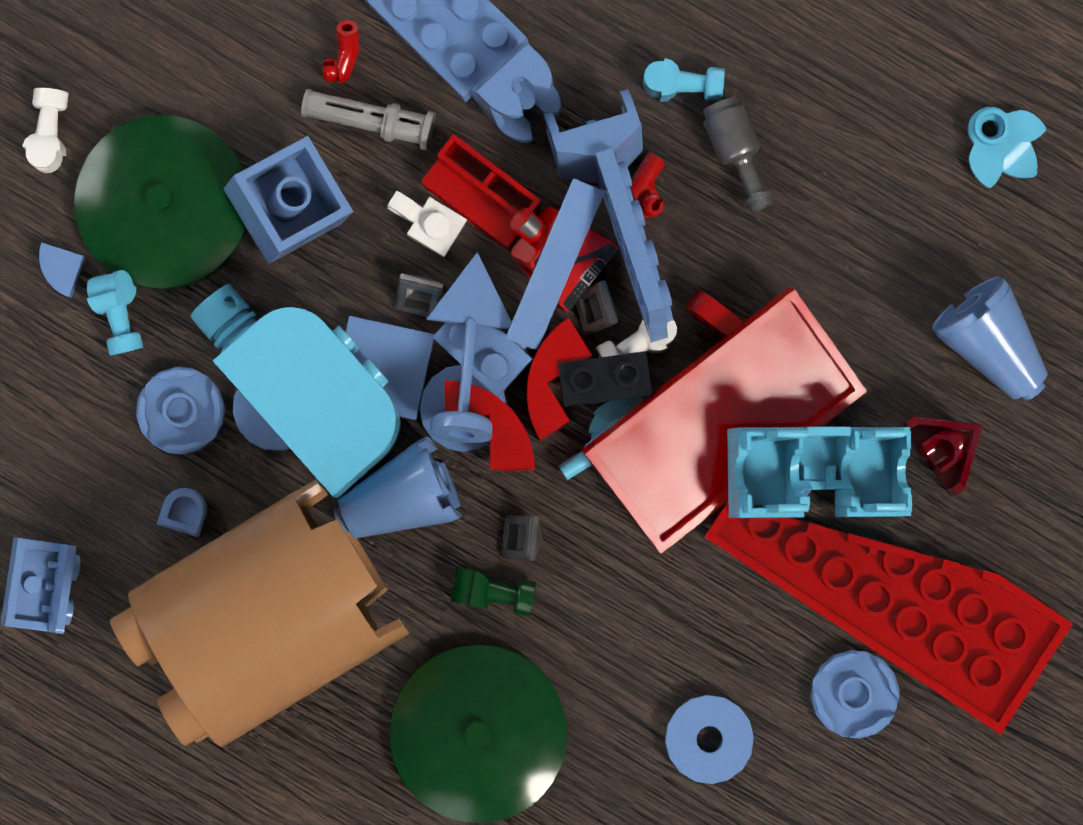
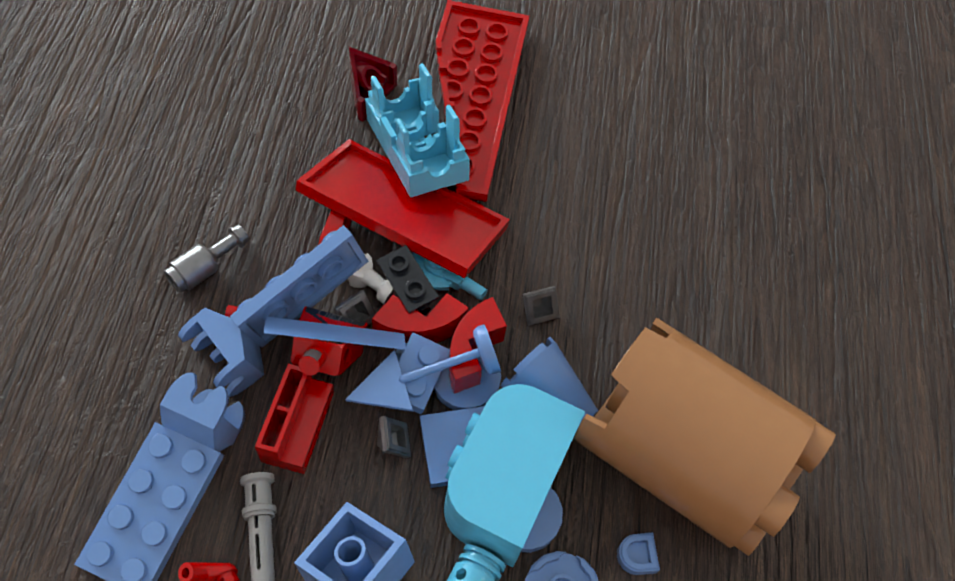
camera: 115 degrees left, 25 degrees down
(432, 226) = (332, 451): white plate -> none
(478, 591) = (592, 320): dark green leg -> none
(478, 733) = (685, 285): dark green dish -> none
(665, 80) = (163, 323): medium azure leg -> none
(727, 758) = (614, 146): medium blue tile -> none
(854, 694) = (542, 96): medium blue tile -> none
(994, 339) = (283, 79): medium blue cone -> none
(1007, 150) = (152, 115): medium azure plate -> none

